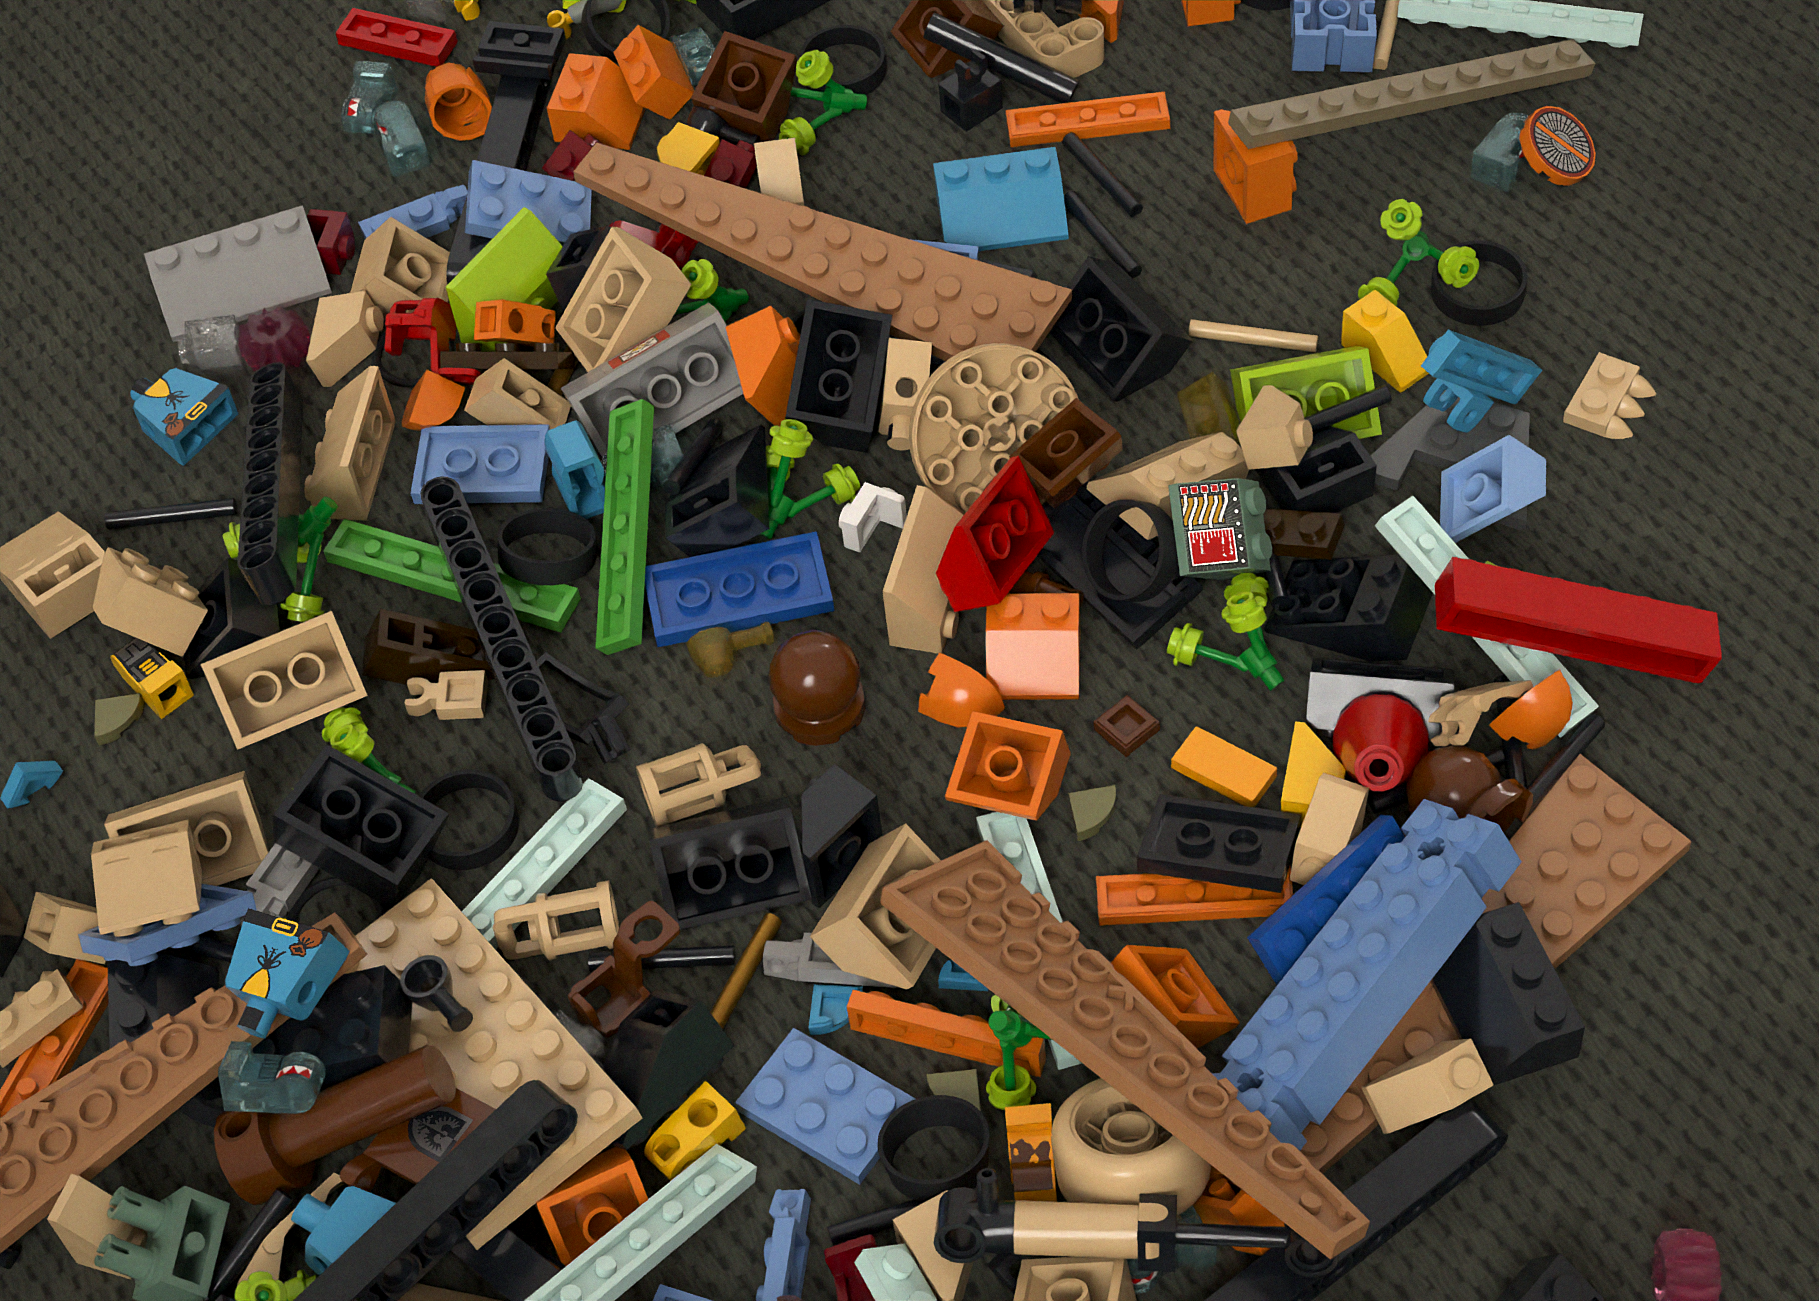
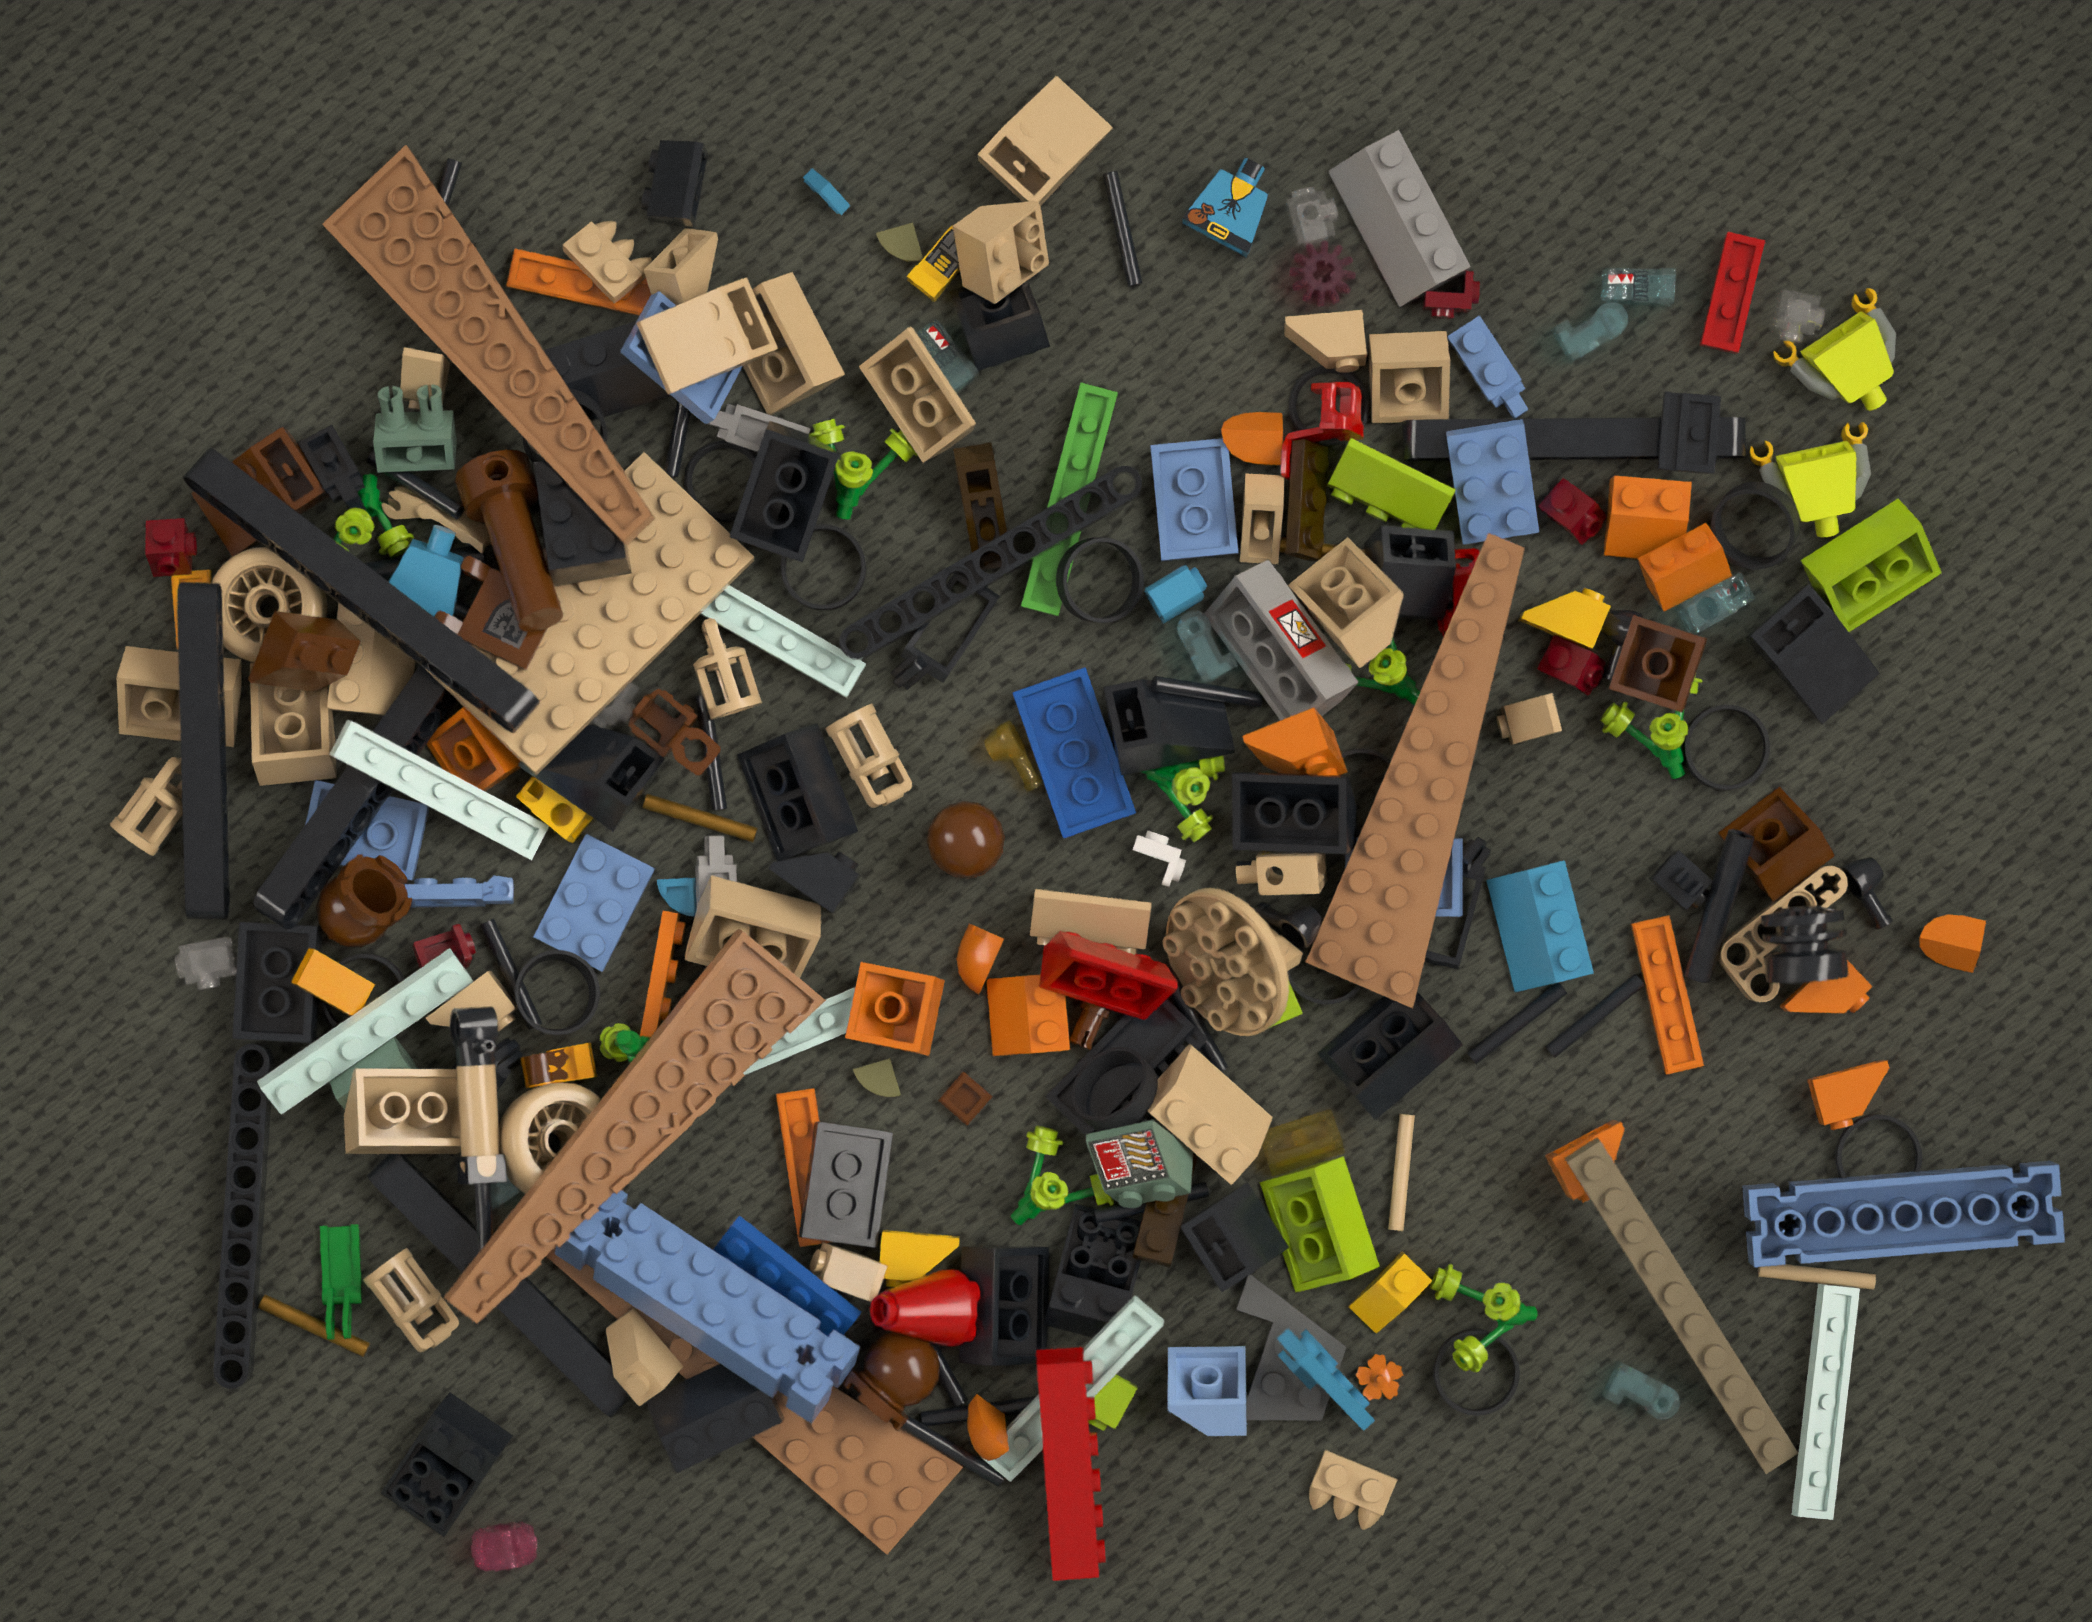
camera: 75 degrees right, 35 degrees up
(269, 1081) = (523, 492): clear light blue leg -> none
(271, 485) = (1108, 345): black beam -> none
(280, 969) = (594, 486): dark azure torso -> none
(300, 605) = (1086, 365): plant -> none
(353, 447) = (1191, 378): tan slope -> none
(430, 985) = (625, 577): black bar -> none
(454, 697) = (943, 533): tan plate -> none
(457, 98) = (1644, 374): orange helmet -> none
(513, 322) = (1333, 504): orange leg -> none
(625, 528) = (1117, 648): bright green plate -> none
(957, 1084) = (613, 1001): olive tile -> none
(1068, 452) = (1196, 1030): reddish brown slope -> none
(1177, 990) = (706, 1159): orange slope -> none
(1224, 767) = (929, 1181): light orange tile -> none
(1274, 431) = (1246, 1202): tan slope -> none
(1349, 408) = (1293, 1245): black piece -> none
(1464, 709) = (975, 1381): tan arm -> none
(1557, 145) = (1642, 1440): tile -> none

